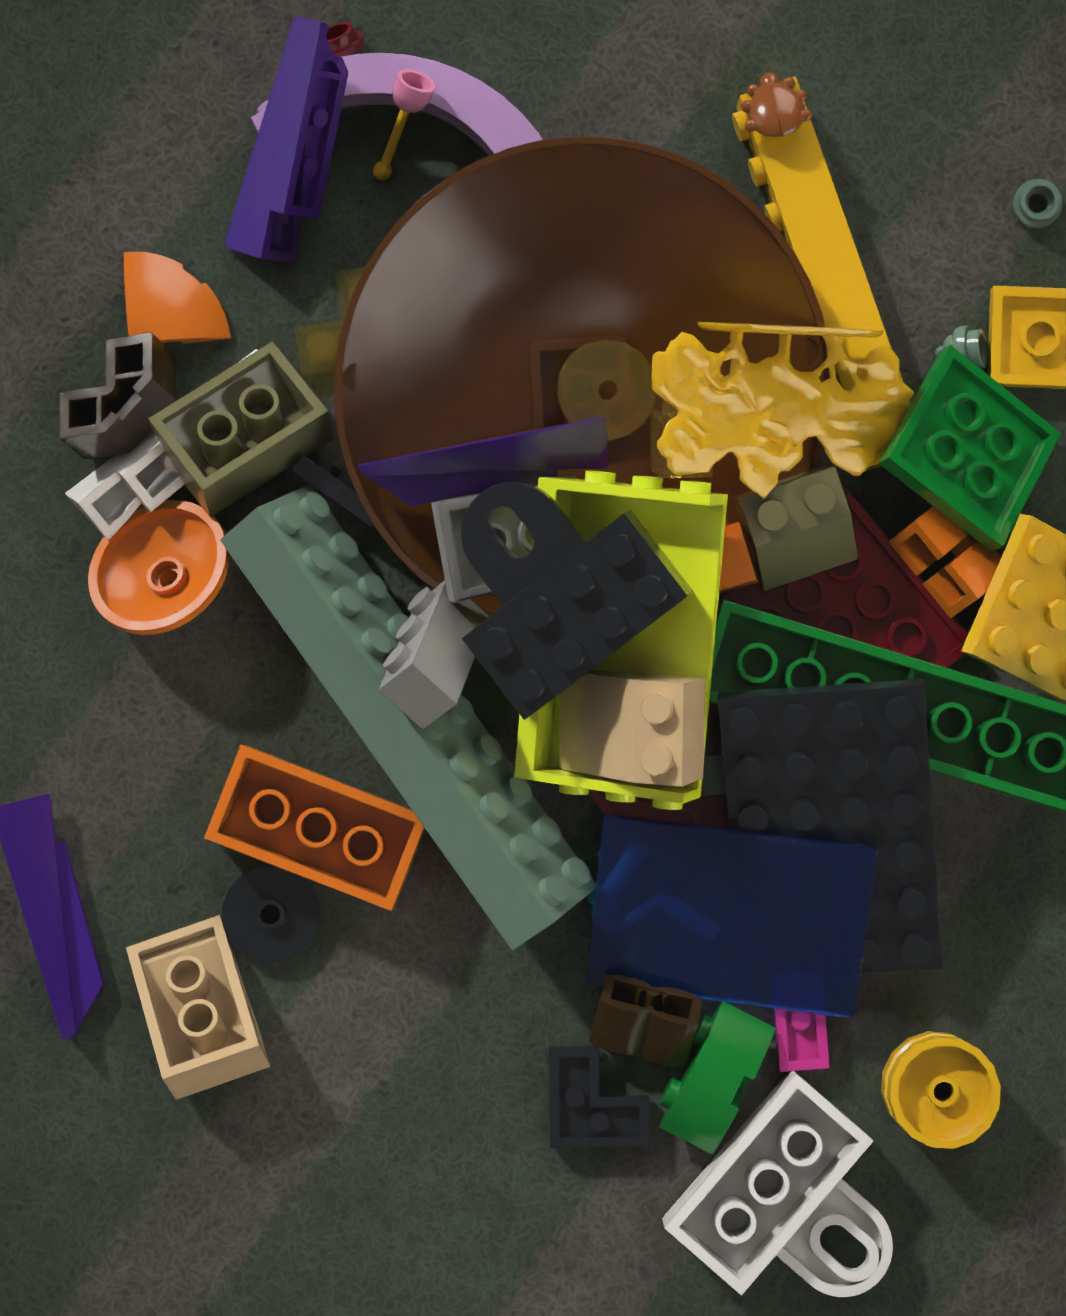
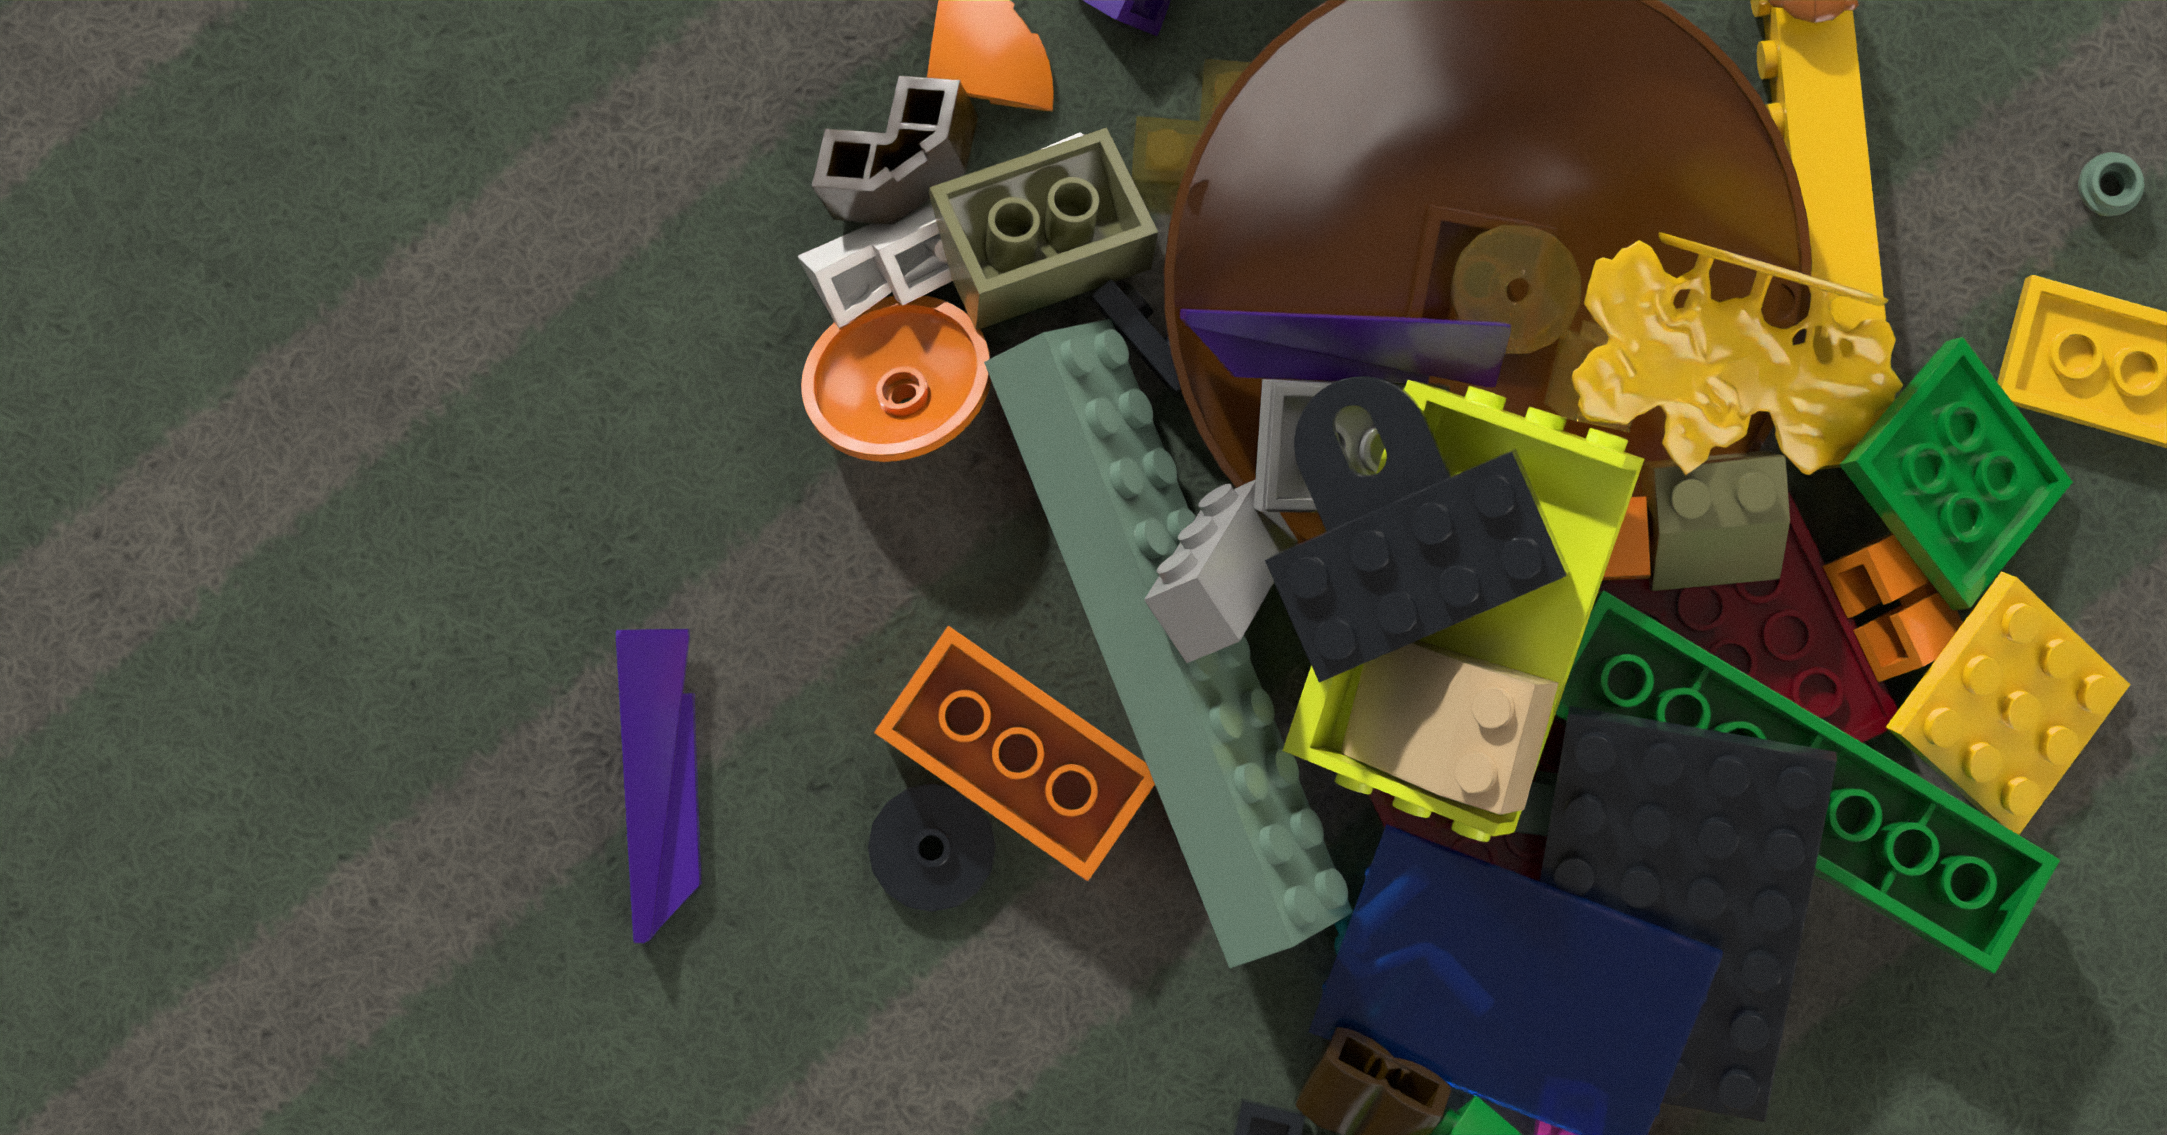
camera: 15 degrees right, 0 degrees up
(197, 1008) = (811, 943): tan slope -> none
(969, 343) = (1984, 338): sand green plate -> none

